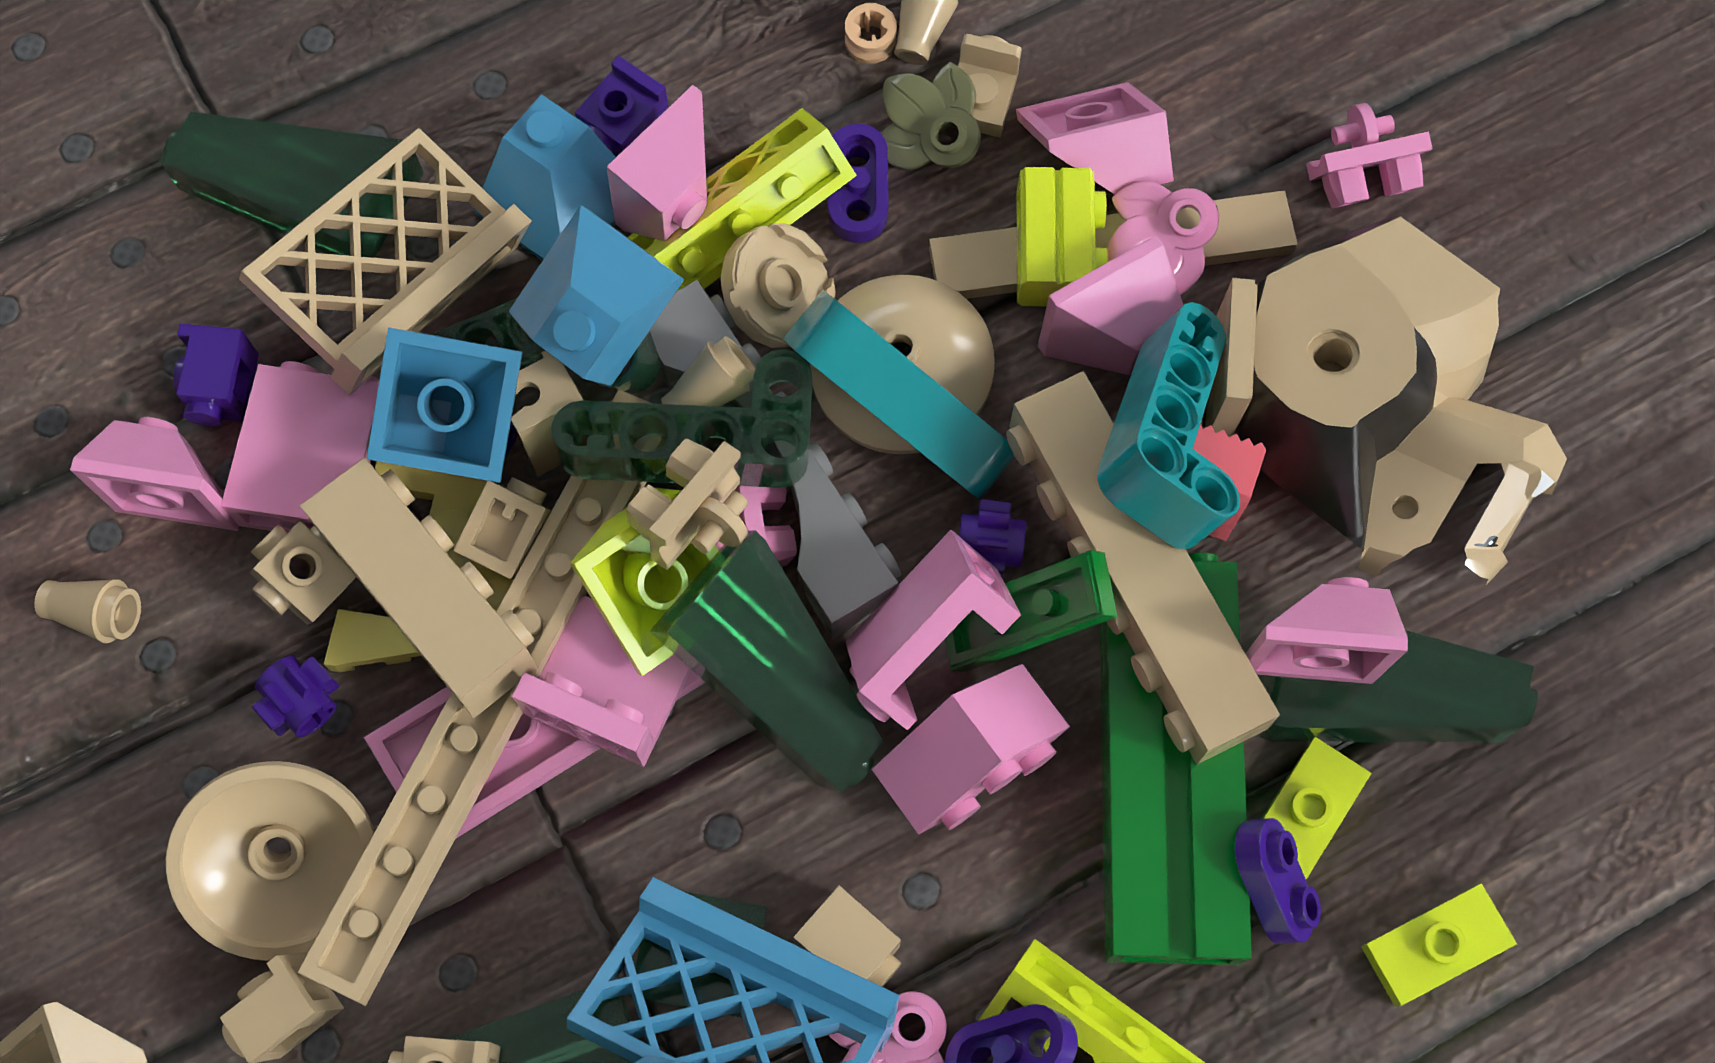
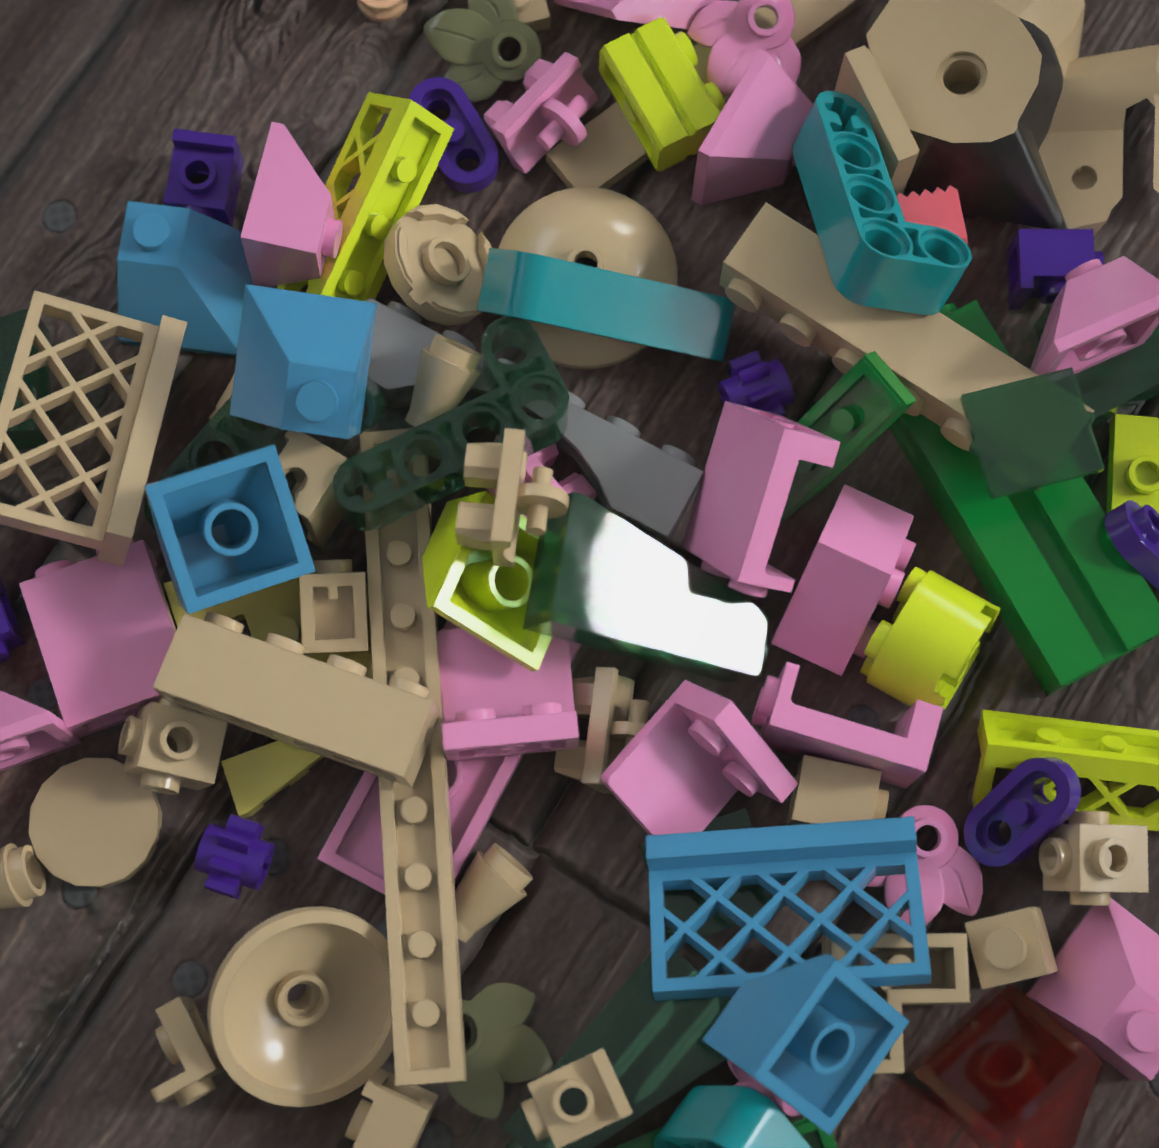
camera: 30 degrees left, 5 degrees up
(150, 835) = (187, 1040): none -> tan bracket
(201, 604) = (94, 823): none -> tan tile
(420, 996) = (498, 1048): none -> olive plate
(493, 849) = (488, 889): none -> tan cone
(684, 771) = (612, 725): none -> tan hips
(730, 837) = (693, 763): none -> bright pink bracket
(866, 881) = (812, 733): none -> bright pink panel
(946, 202) = (544, 113): none -> bright pink hips
(1013, 847) = (930, 640): none -> neon yellow brick
(1207, 703) = (1031, 433): none -> clear green piece
(1327, 555) = (1041, 261): none -> dark purple brick

